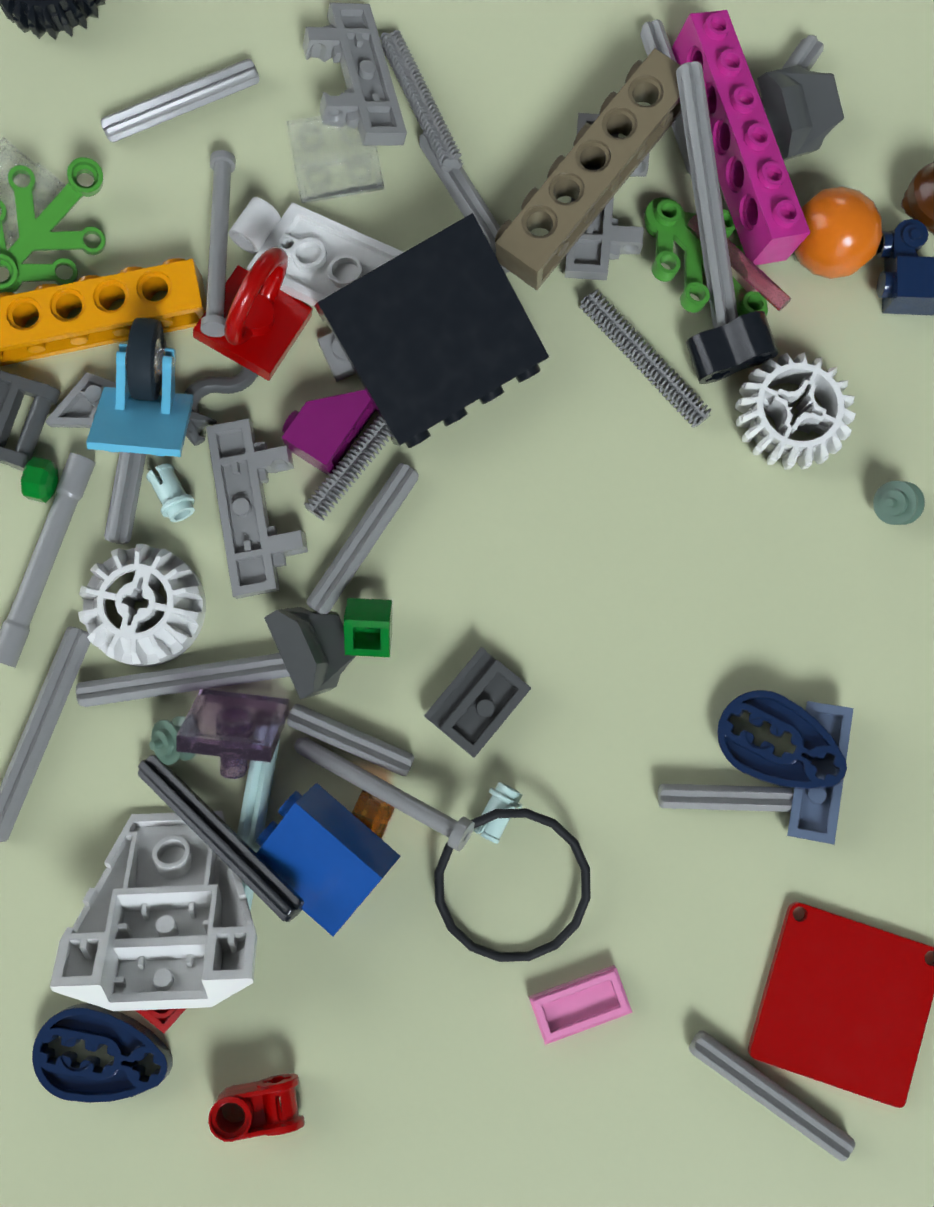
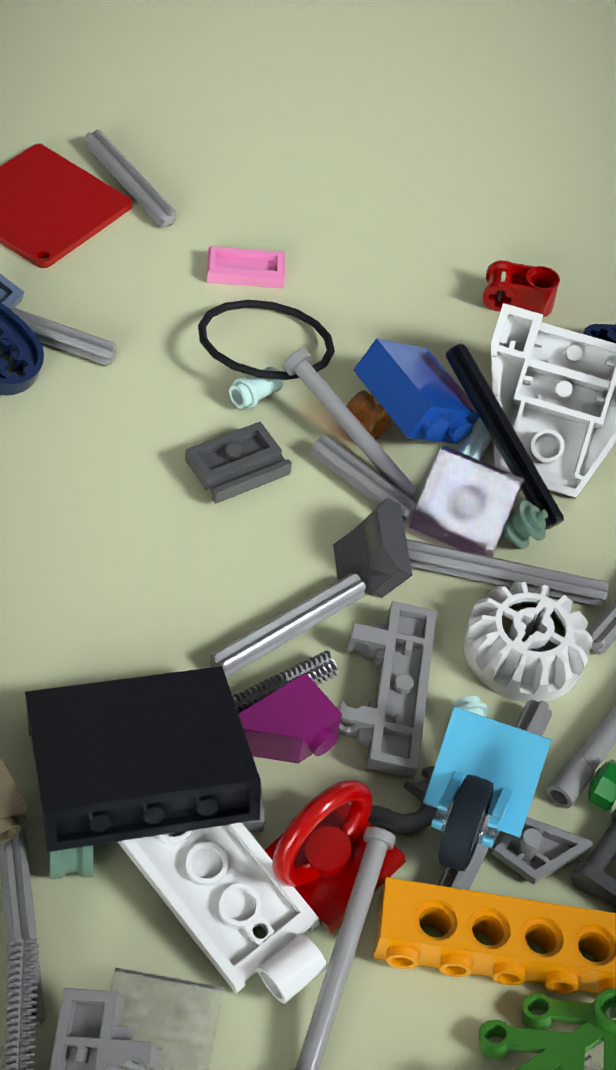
camera: 165 degrees left, 30 degrees down
(368, 627) = (314, 542): green plate -> none

